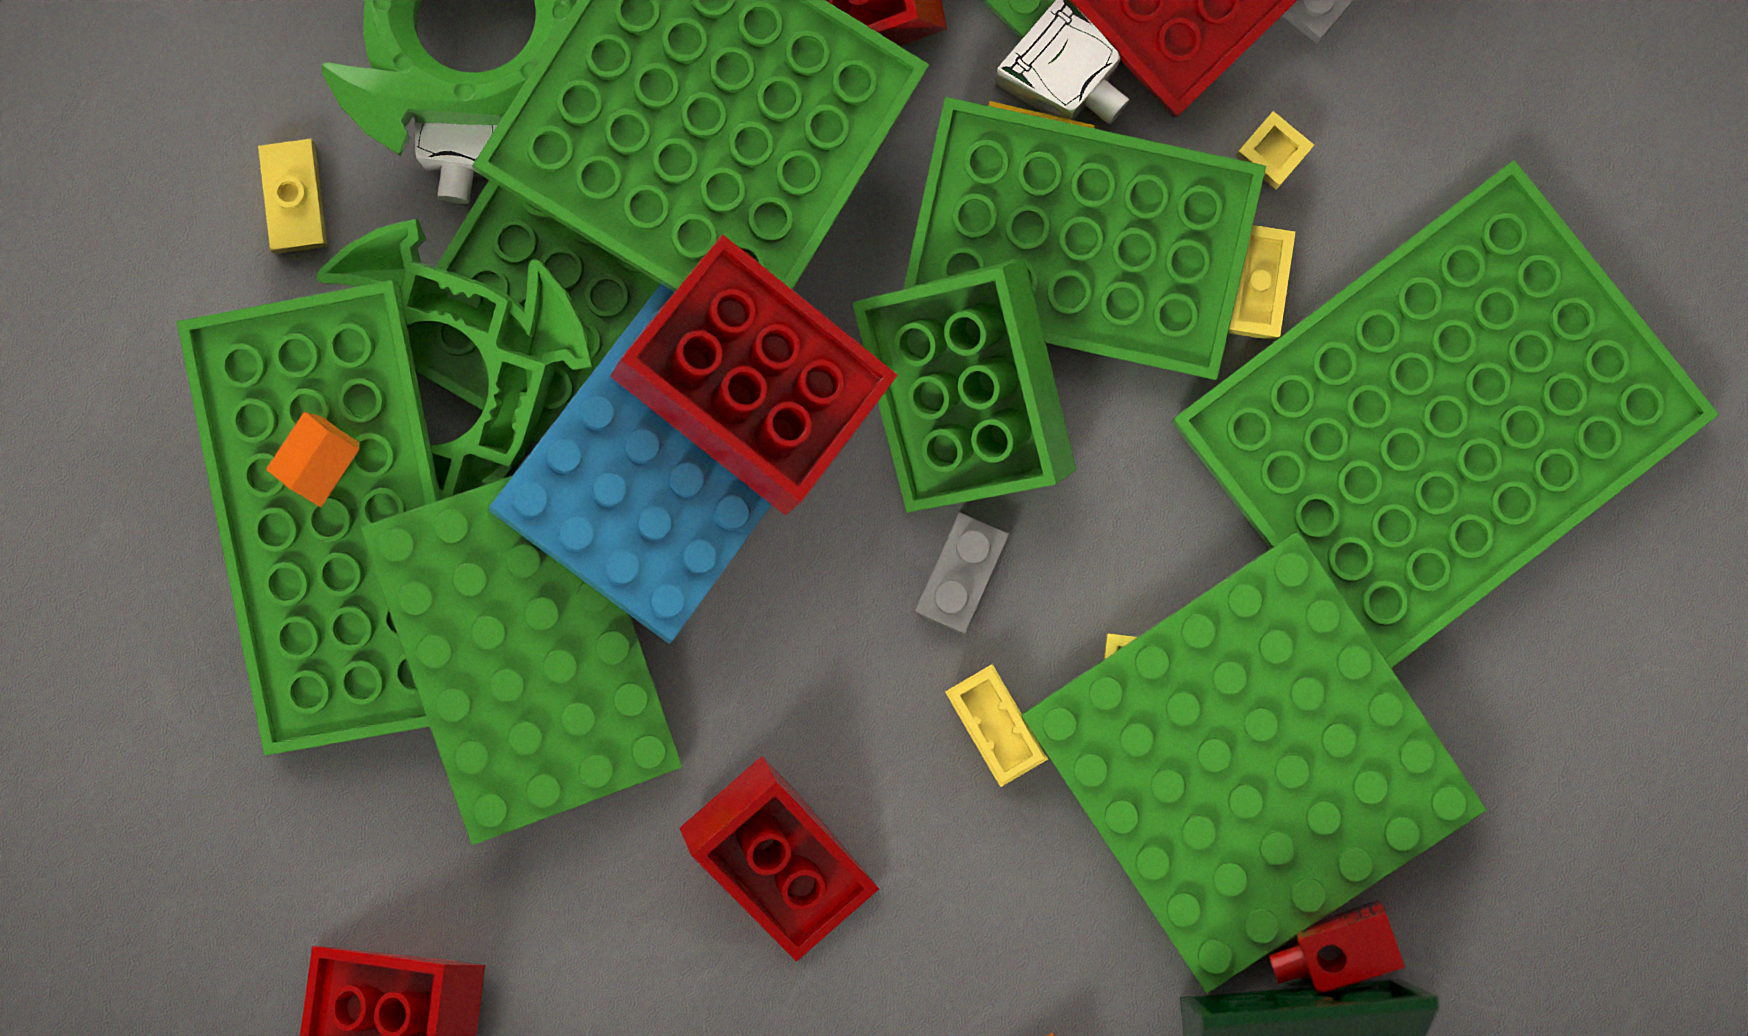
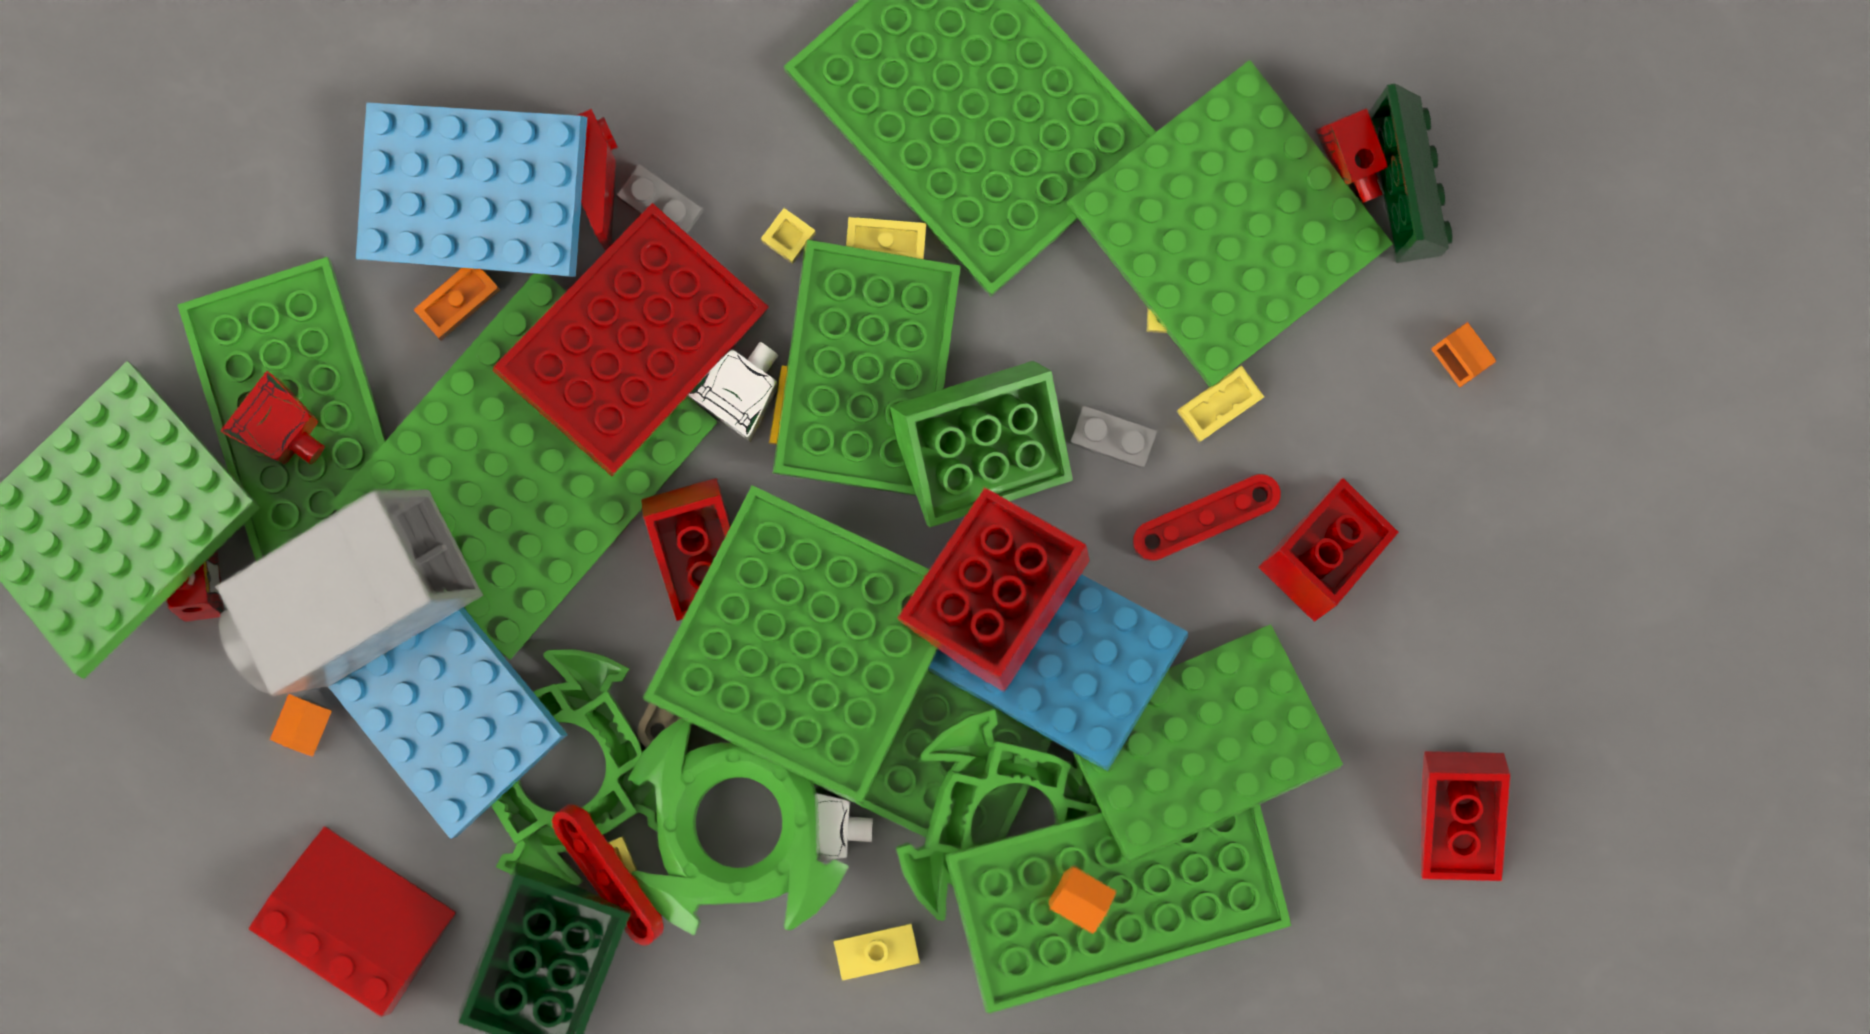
camera: 100 degrees left, 0 degrees up
(837, 691) = (1206, 517): none -> red plate

